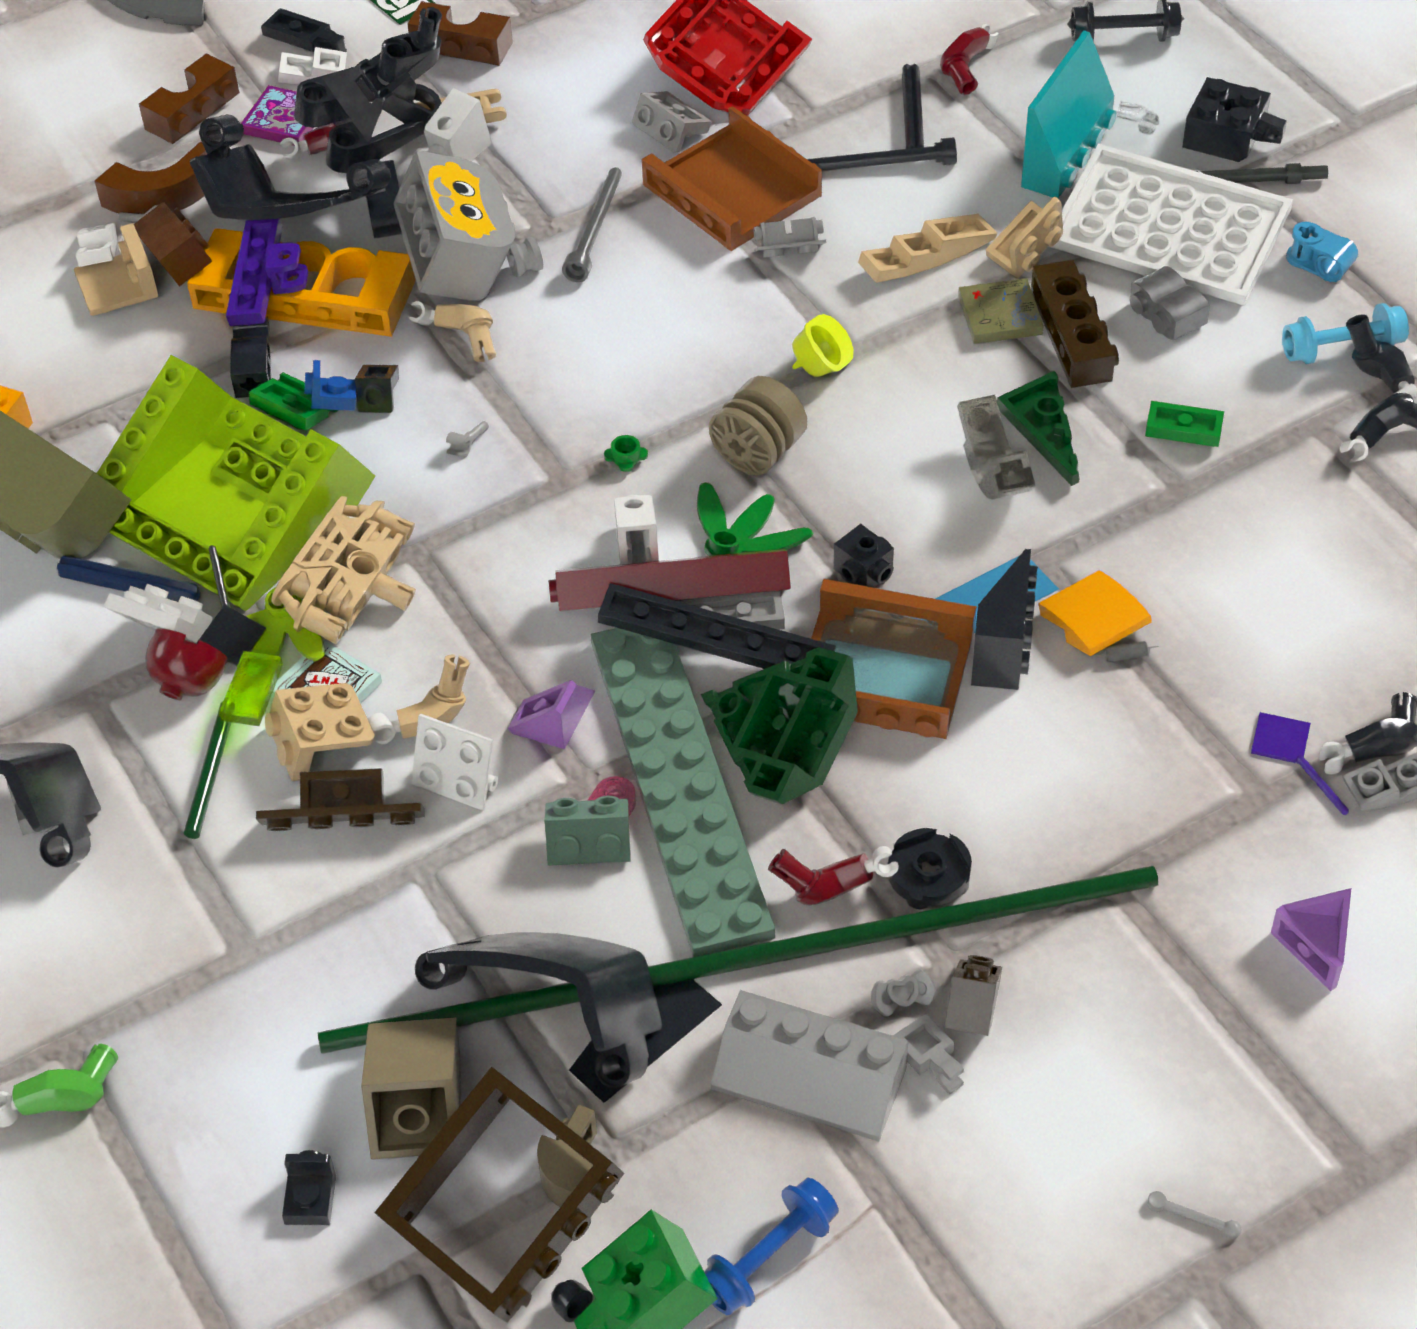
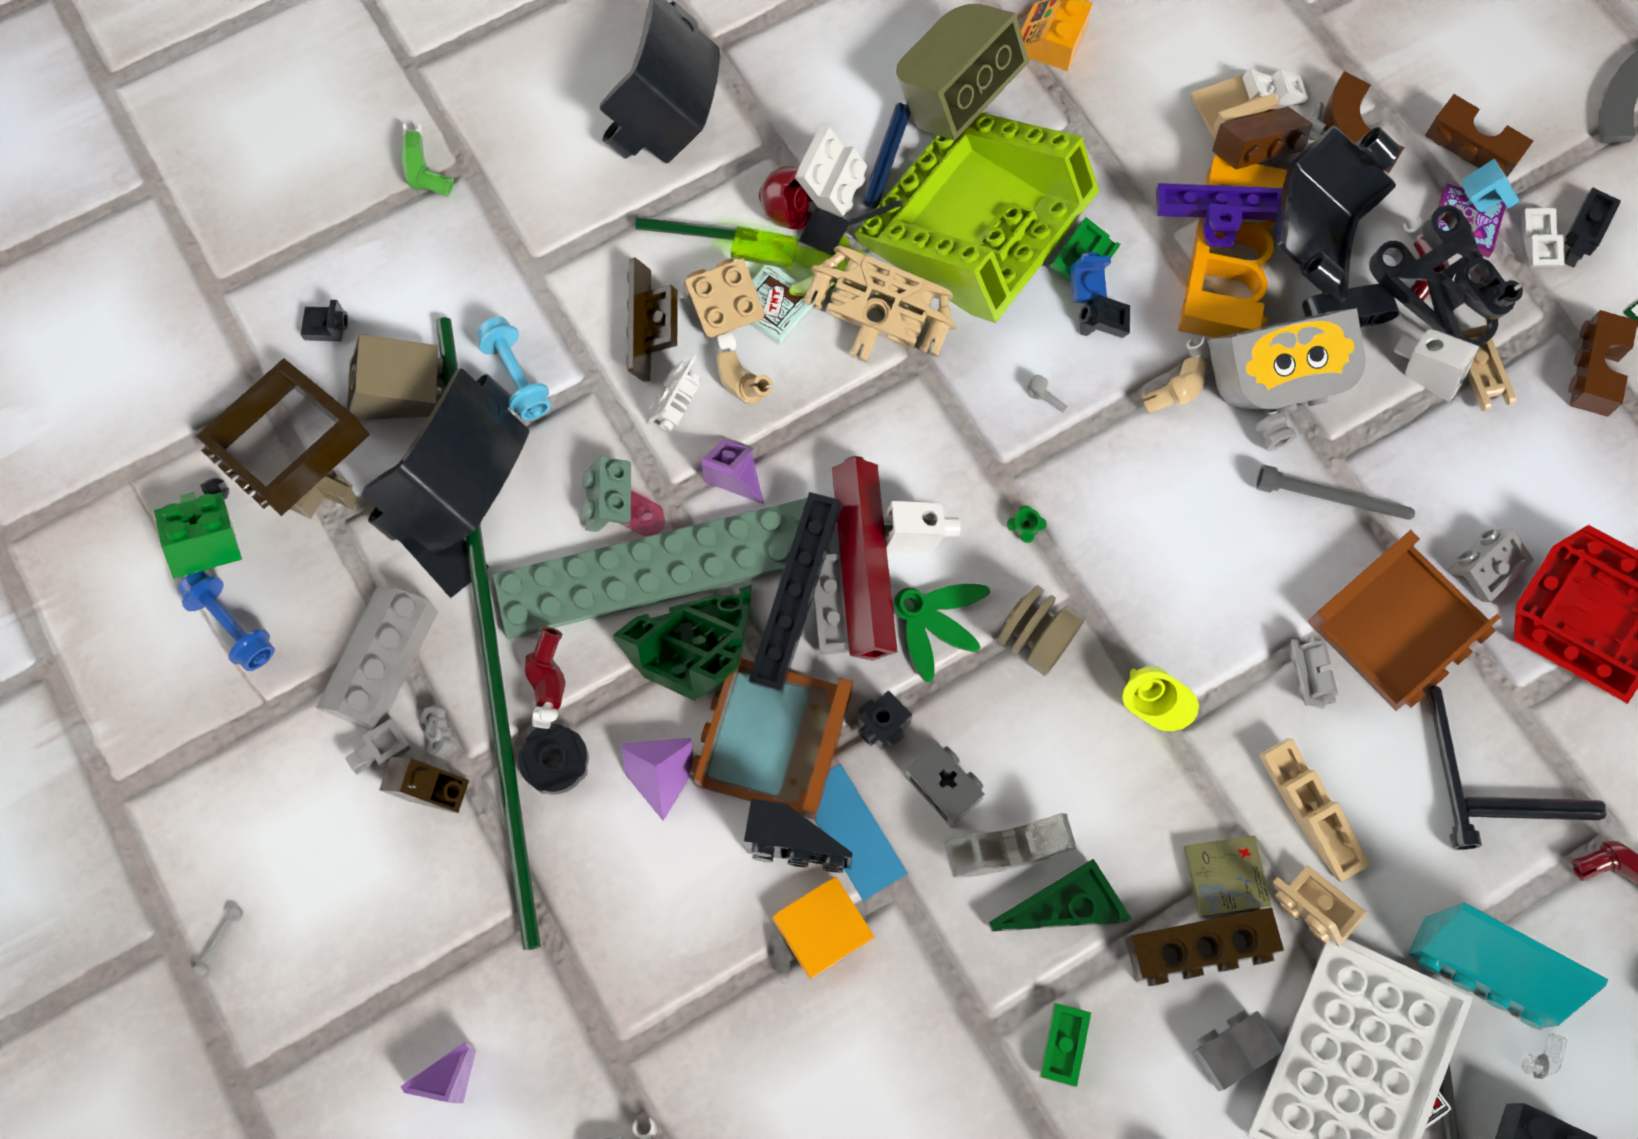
camera: 90 degrees right, 20 degrees up
(250, 357) = (1134, 218): black piece -> none
(256, 84) = (1489, 187): none -> medium azure panel
(354, 964) = (497, 337): none -> medium azure piece
(929, 513) = (926, 777): none -> dark grey brick
(935, 764) = (659, 770): none -> medium lavender slope
(1286, 741) = (674, 1088): dark purple piece -> none

